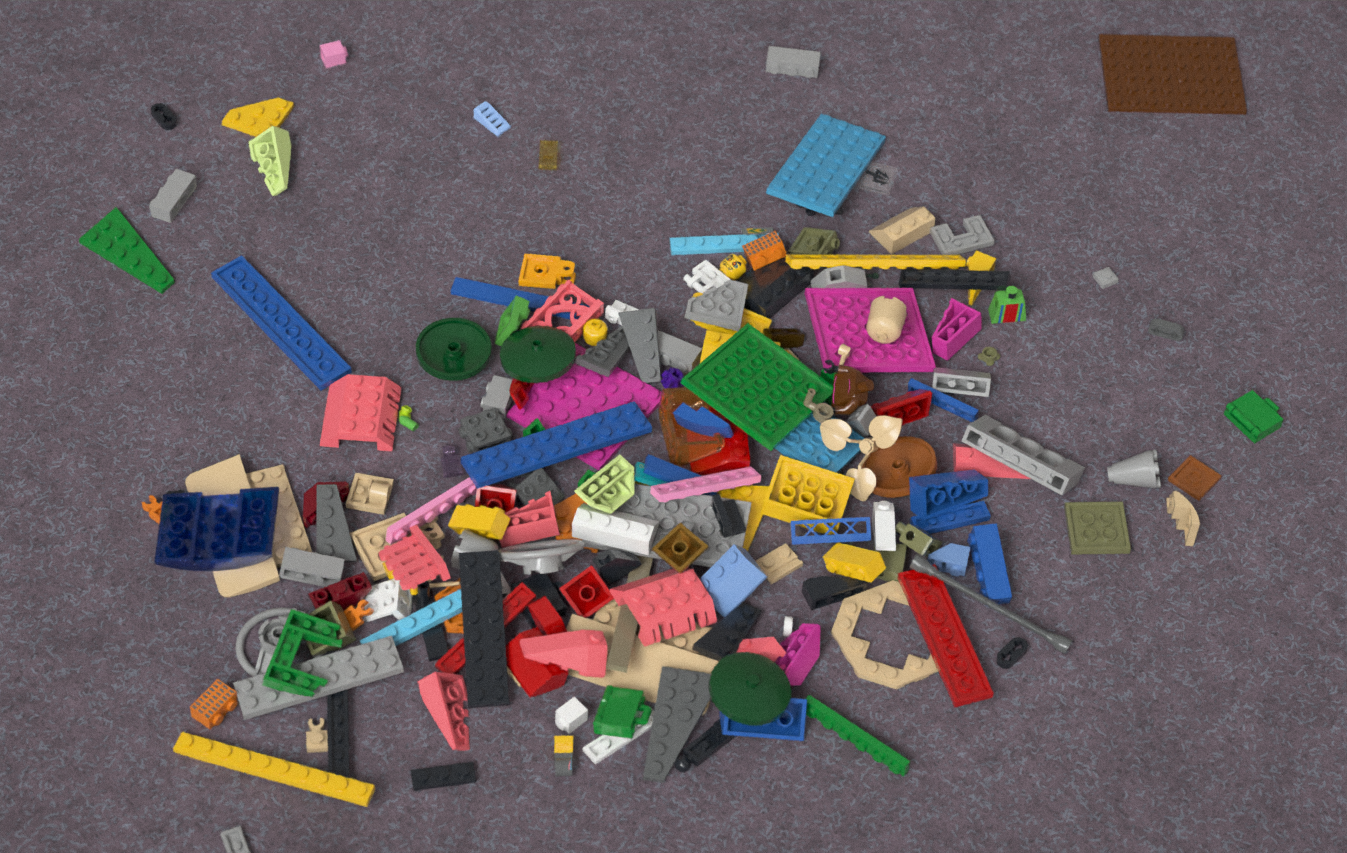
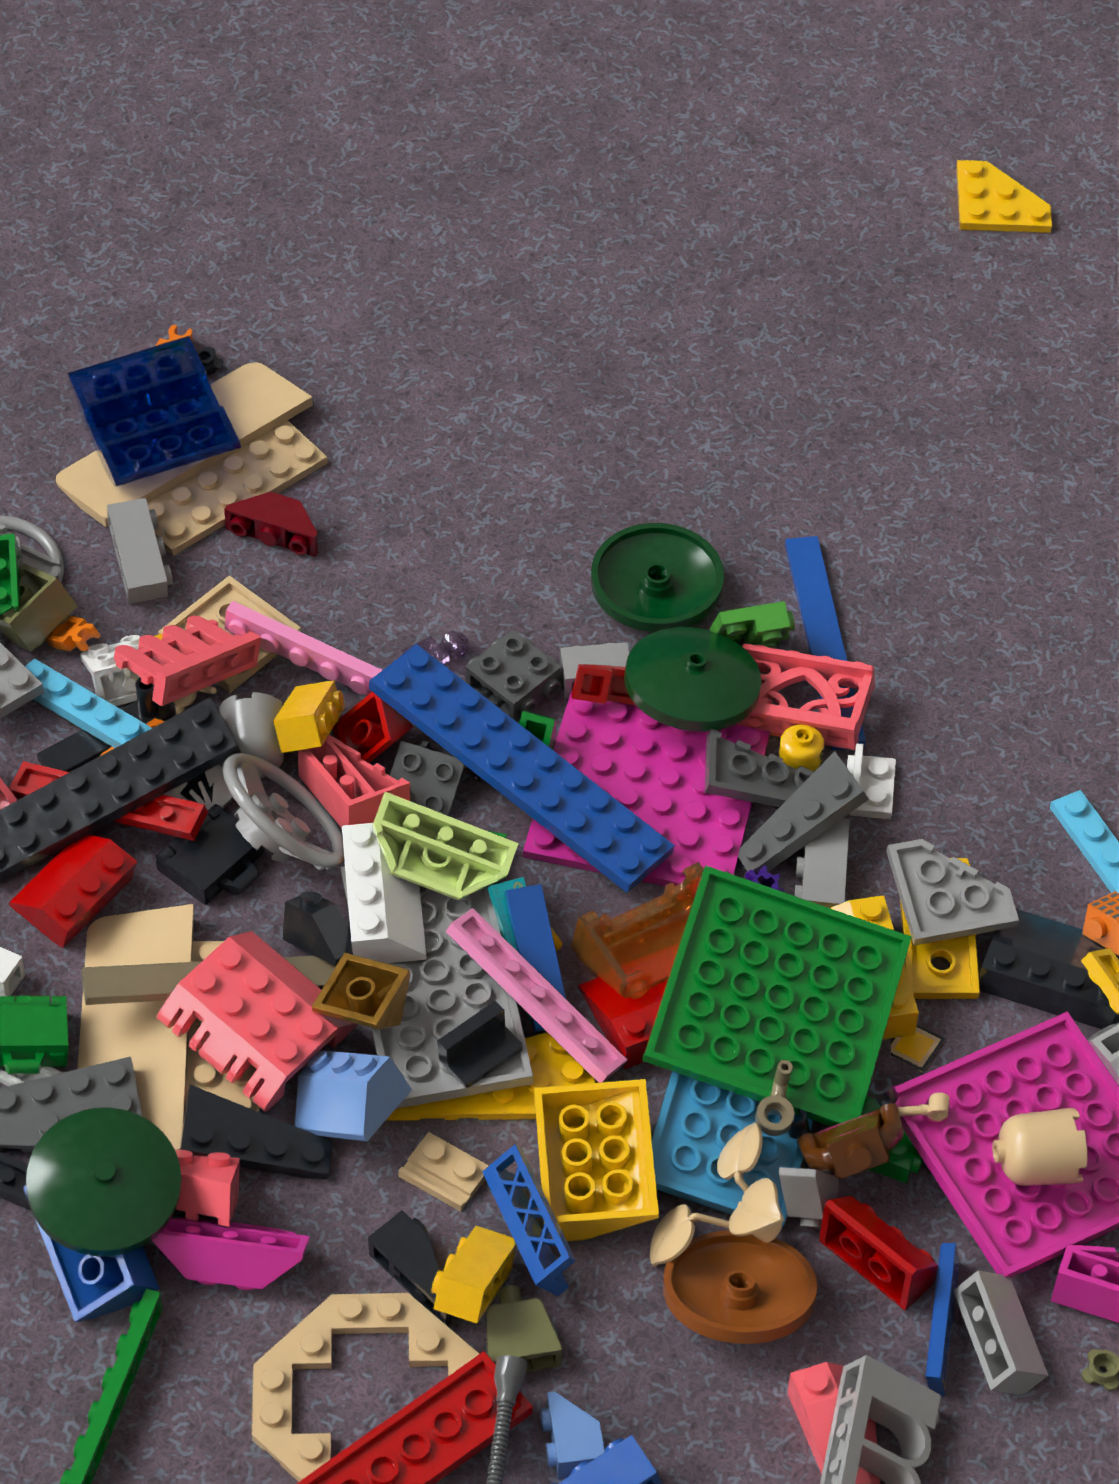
camera: 70 degrees right, 0 degrees up
(122, 246) = (641, 146): green wing -> none
(160, 118) = (920, 94): black beam -> none
(173, 195) = (772, 158): light grey brick -> none
(273, 153) = (932, 233): yellowish green wedge -> none
(281, 322) = (599, 363): blue plate -> none
(332, 528) = (213, 554): dark grey wing -> none
(345, 592) = (100, 600): dark red slope -> none
(361, 411) = (474, 510): coral slope -> none
(369, 493) = (322, 576): tan plate -> none
(405, 418) = (496, 571): bright green arm -> none
(435, 535) = (273, 681): tan piece -> none
(546, 617) = (156, 872): red slope -> none
(552, 273) = (903, 657): light orange plate -> none
(575, 650) = (93, 912): coral wedge -> none
(586, 592) = (244, 905): red slope -> none
(701, 421) = (665, 939): blue slope -> none
(708, 275) = (1029, 871): white plate -> none
(733, 266) = (1065, 898): yellow head -> none
(786, 336) = (951, 1023): dark brown slope -> none
(787, 626) = (308, 1221): white tile -> none
(884, 526) = (584, 1300): white slope -> none
(917, 539) = (580, 1365): olive torso -> none
(945, 491) = (715, 1377): blue wedge -> none
(955, 518) = (673, 1413): blue plate -> none

